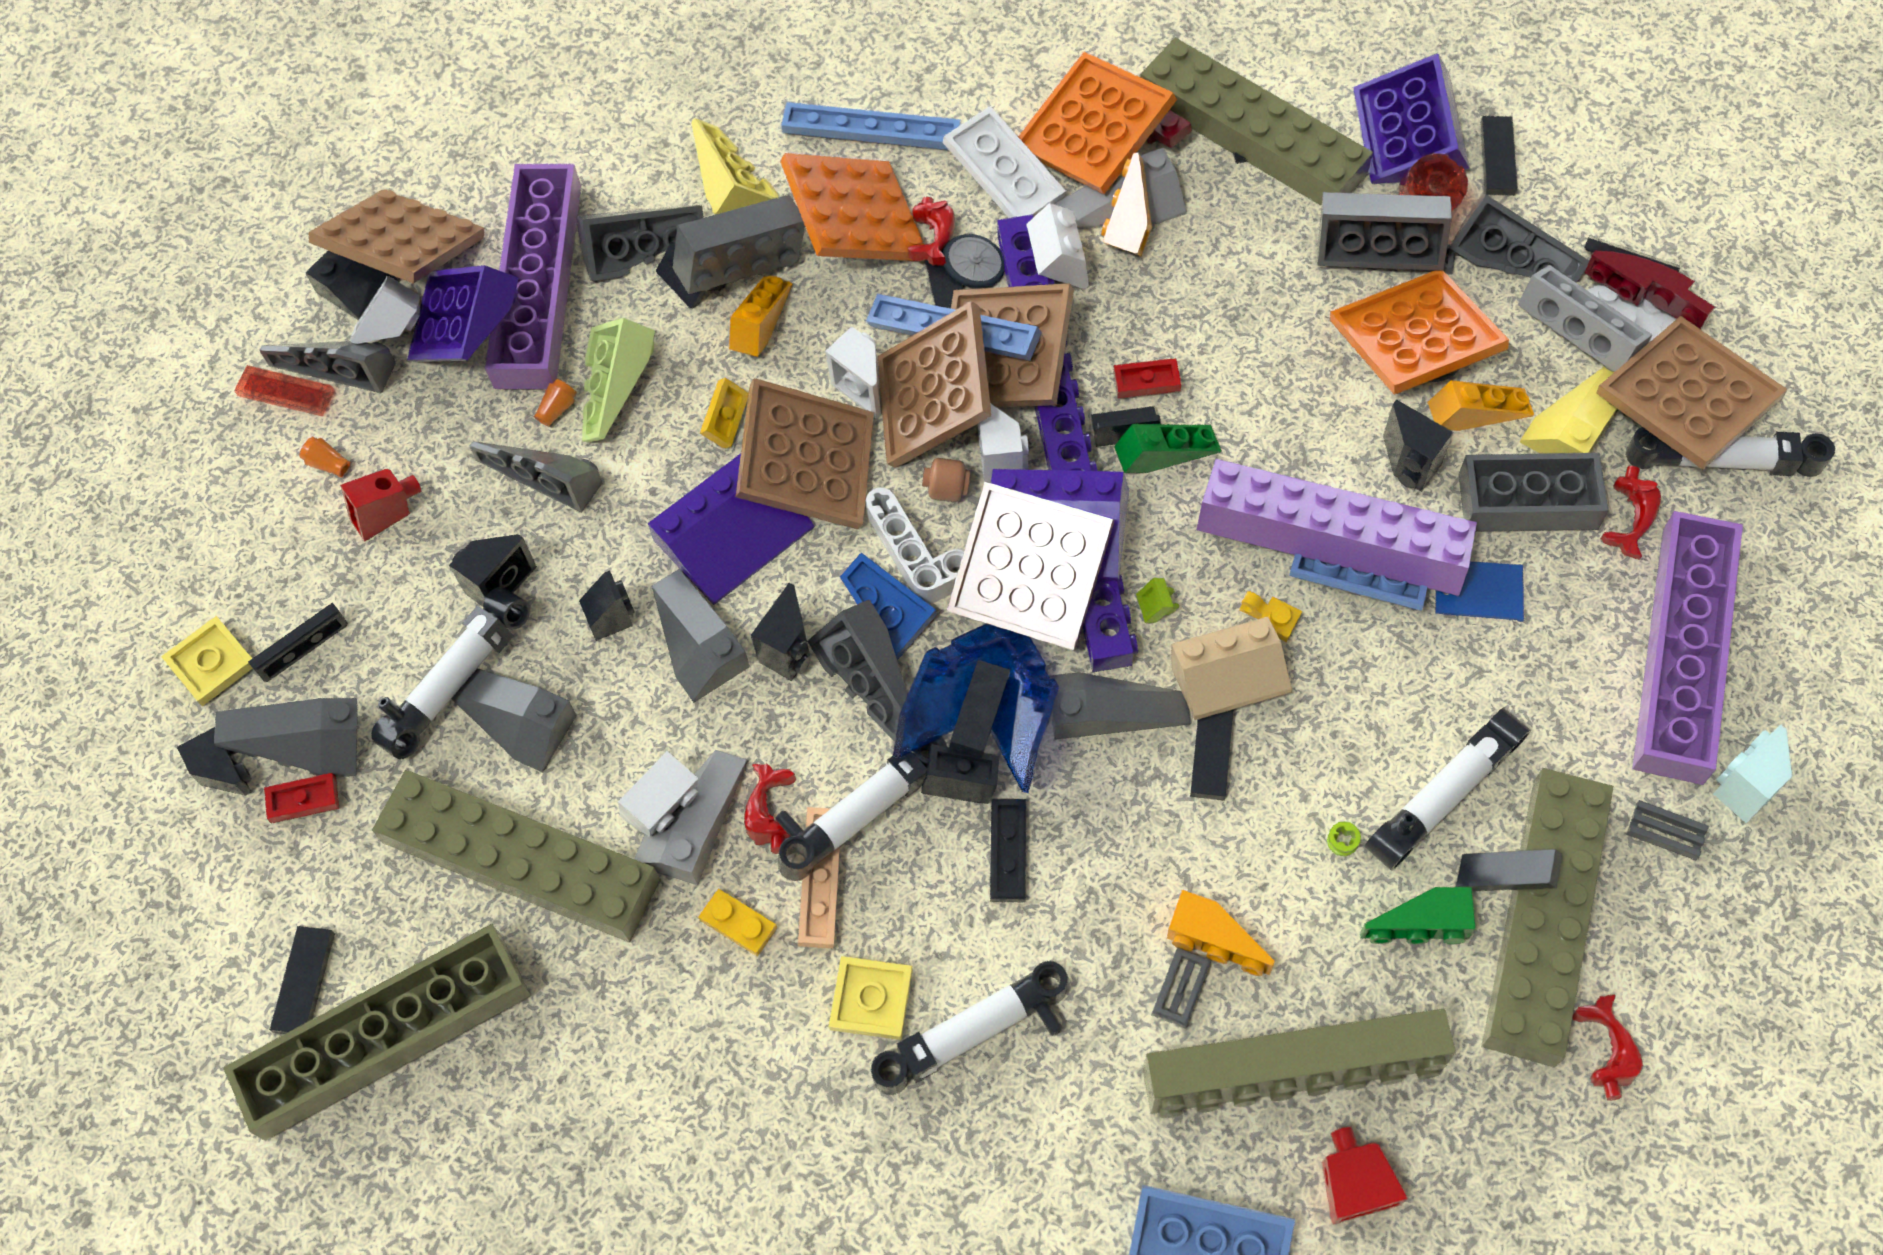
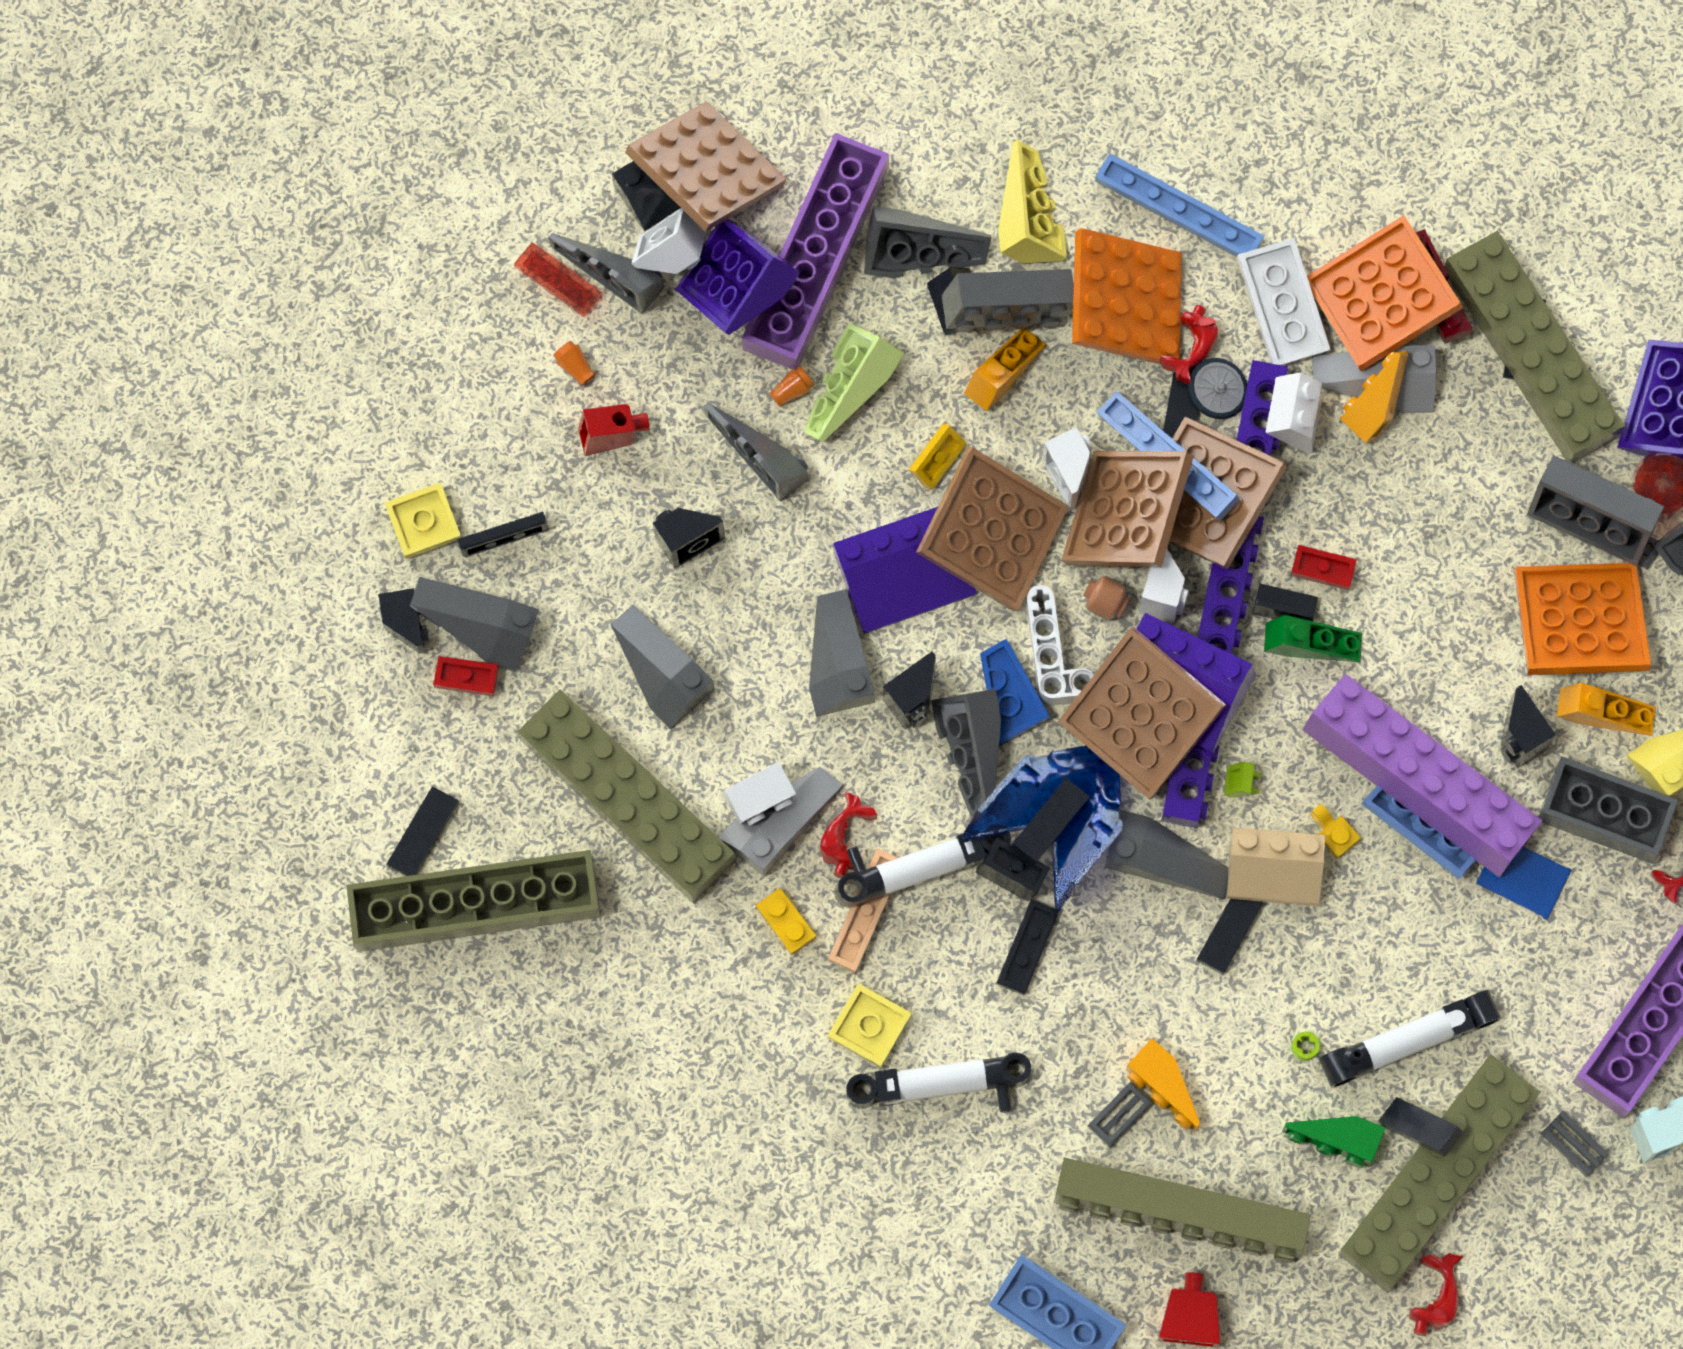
camera: 20 degrees right, 10 degrees up
(486, 631) = (663, 589): piece -> none
(607, 607) = (772, 605): black slope -> none

